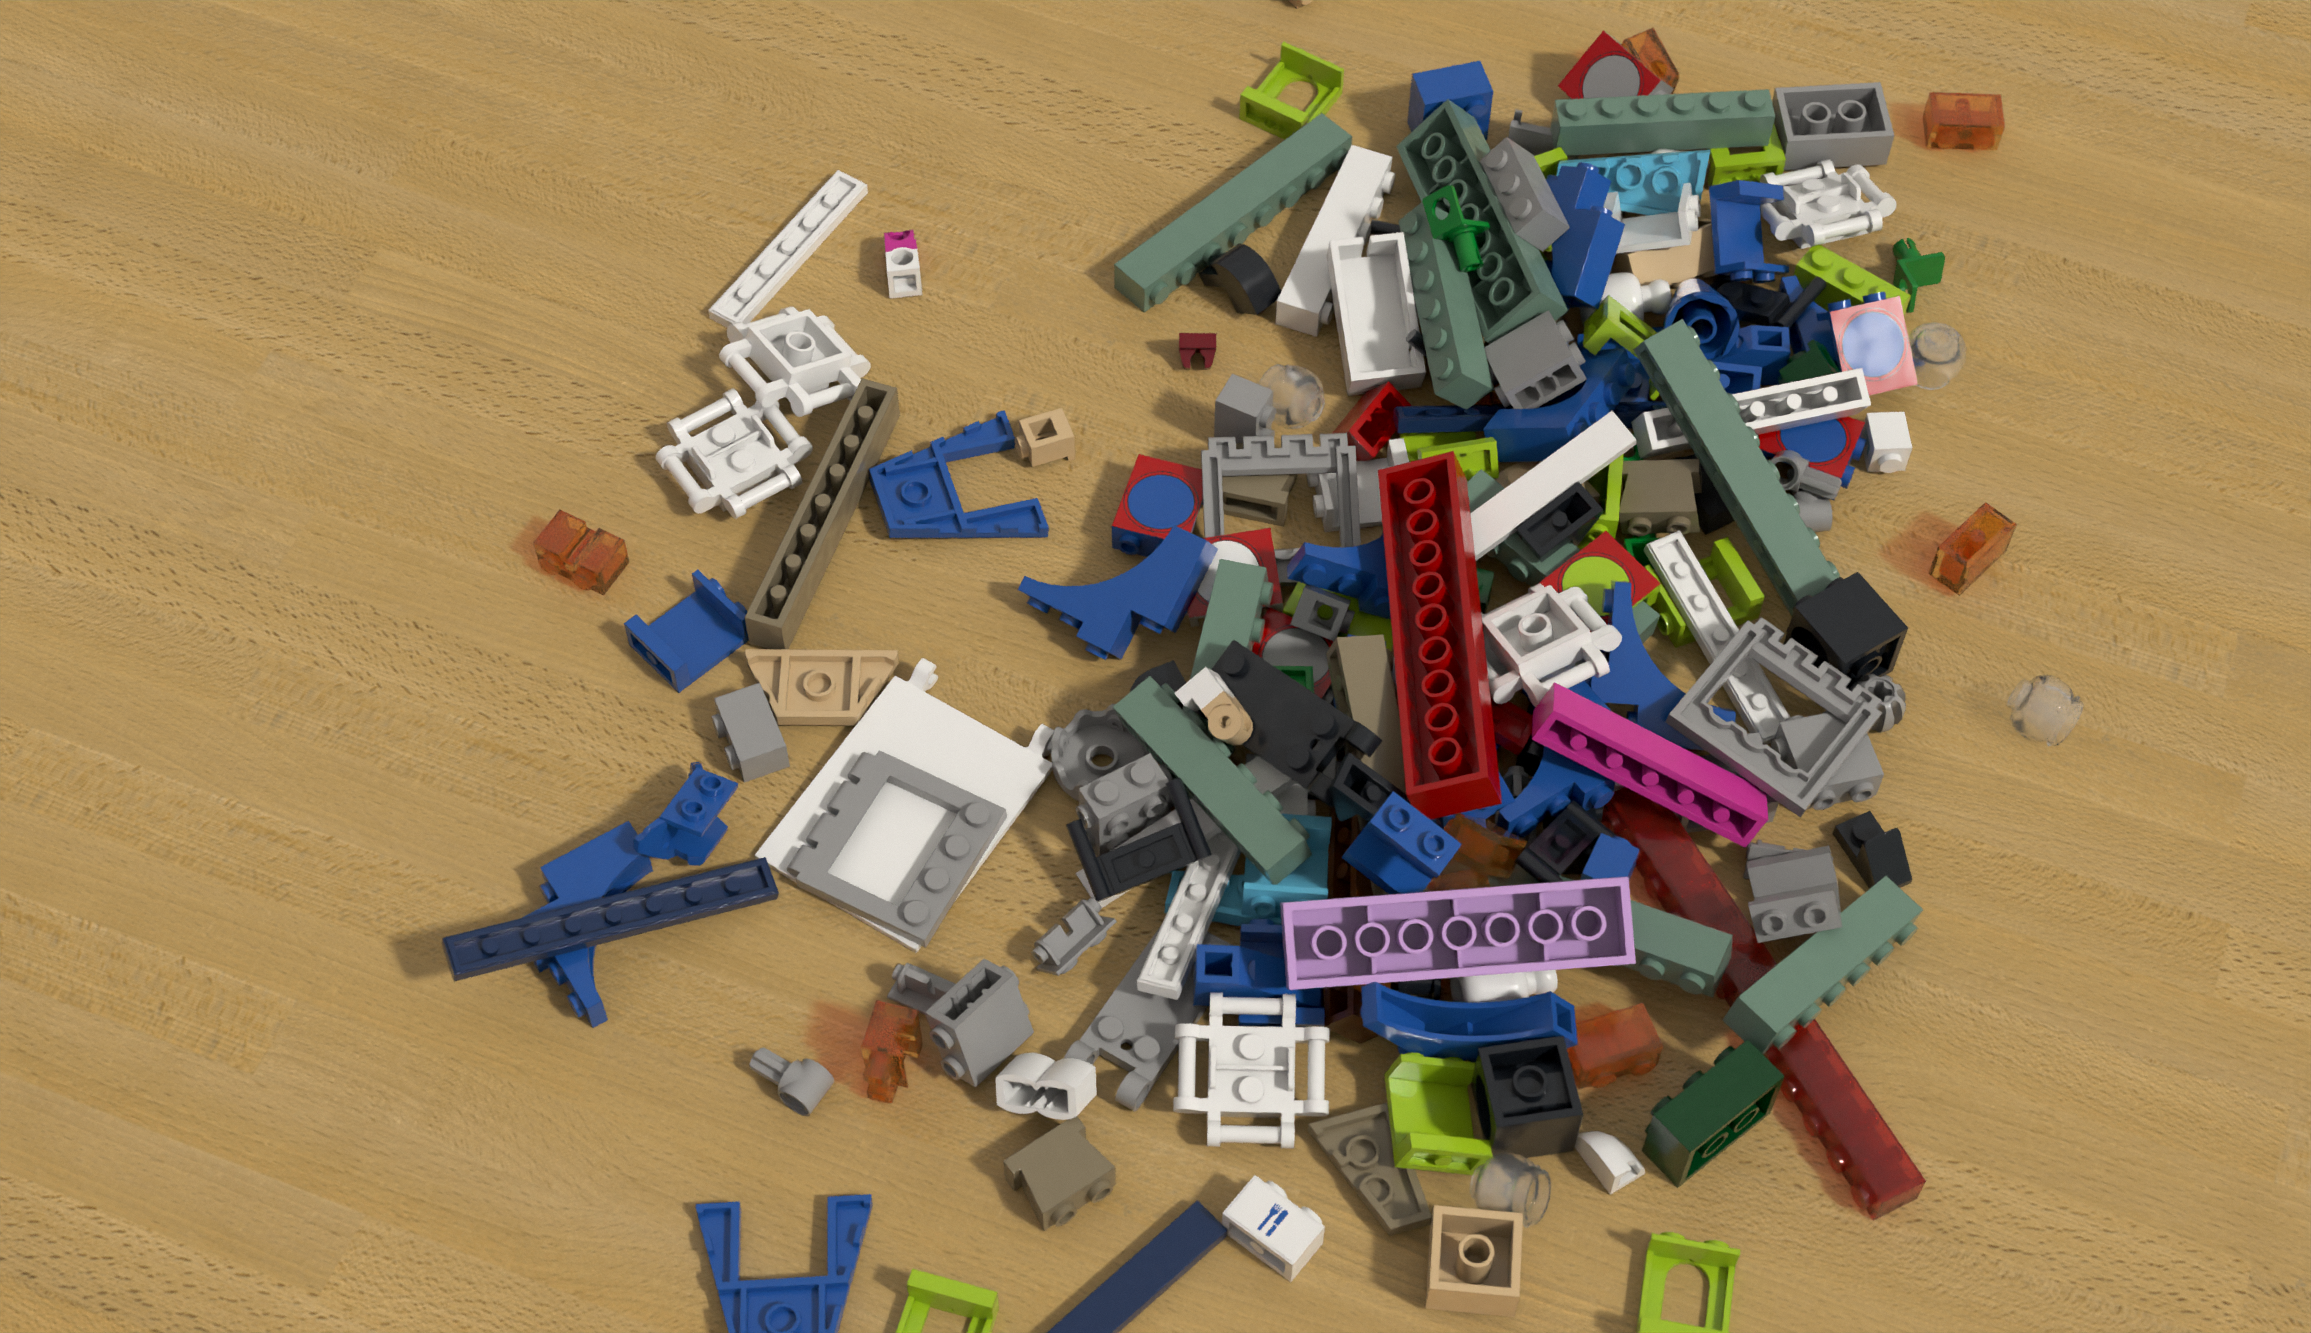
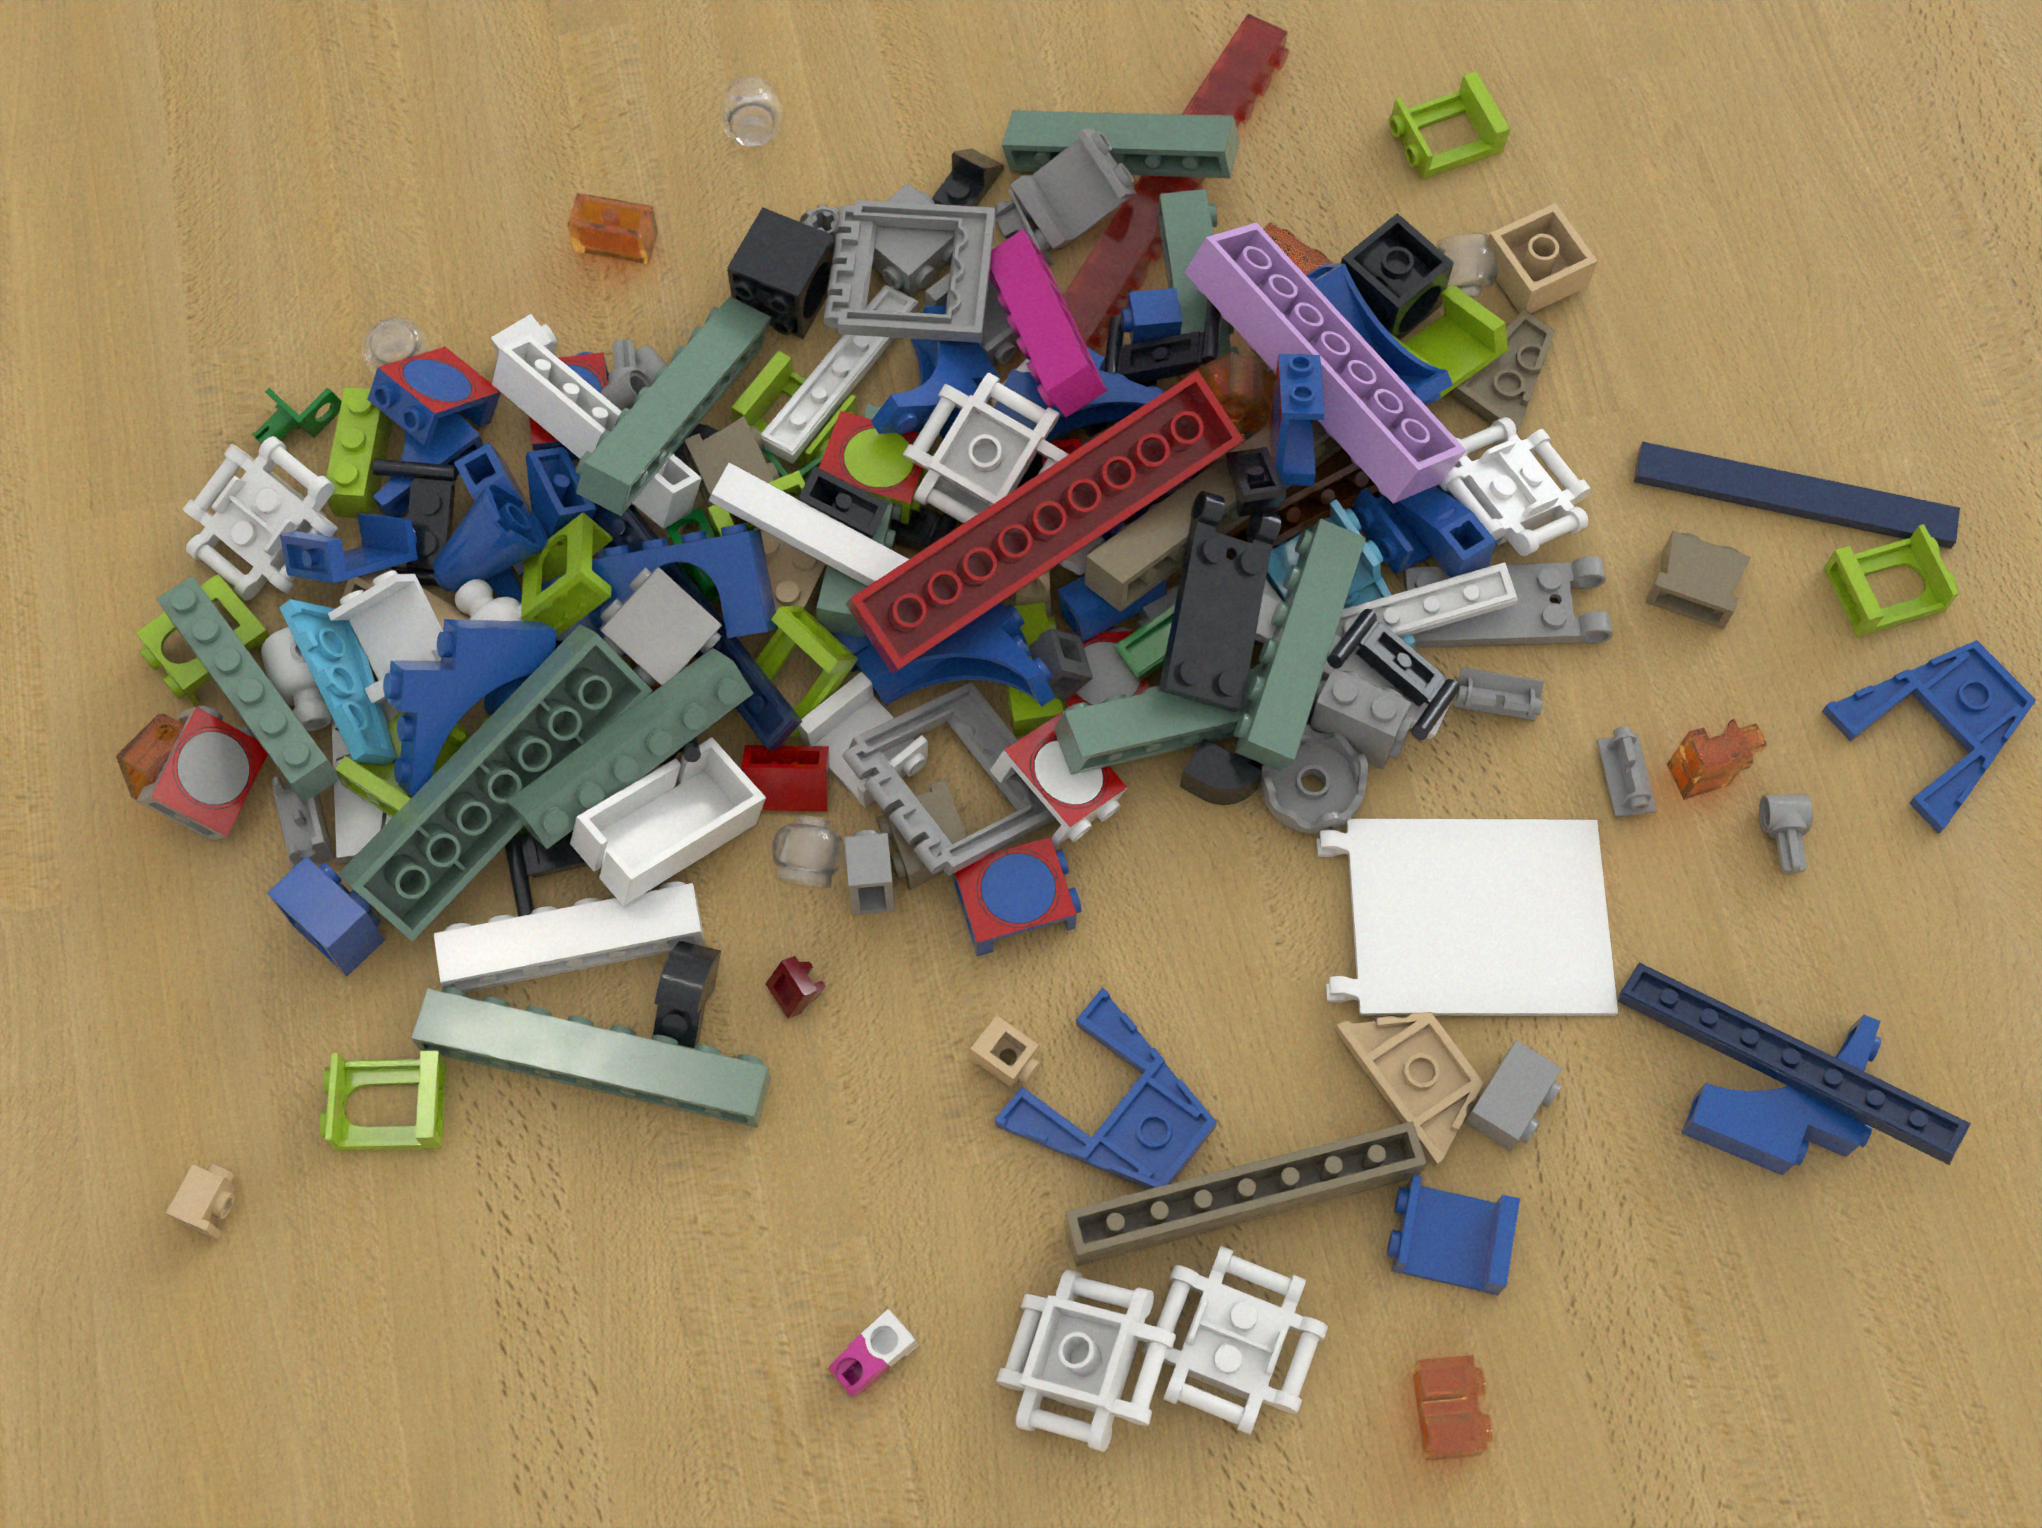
camera: 125 degrees left, 10 degrees up
(690, 820) = (1645, 1065): blue piece -> none
(788, 250) = (929, 1495): white tile -> none
(941, 876) = (1517, 953): light grey hinge -> none
(979, 1022) = (1643, 698): light grey brick -> none
(1046, 1086) = (1645, 623): white brick -> none
(1149, 594) = (1167, 858): blue arch -> none
(1225, 714) = (1245, 657): leg -> none
(1273, 1227) = (1616, 409): white brick -> none
(1455, 228) = (547, 763): green bracket -> none
(1524, 194) = (453, 734): light grey brick -> none
(1609, 1159) = (1375, 215): white brick -> none
(1711, 1112) = (1300, 163): dark green brick -> none
(1808, 364) = (499, 422): dark green brick -> none
(1833, 123) = (134, 554): light grey brick -> none
(1963, 121) = (57, 459): clear orange brick -> none

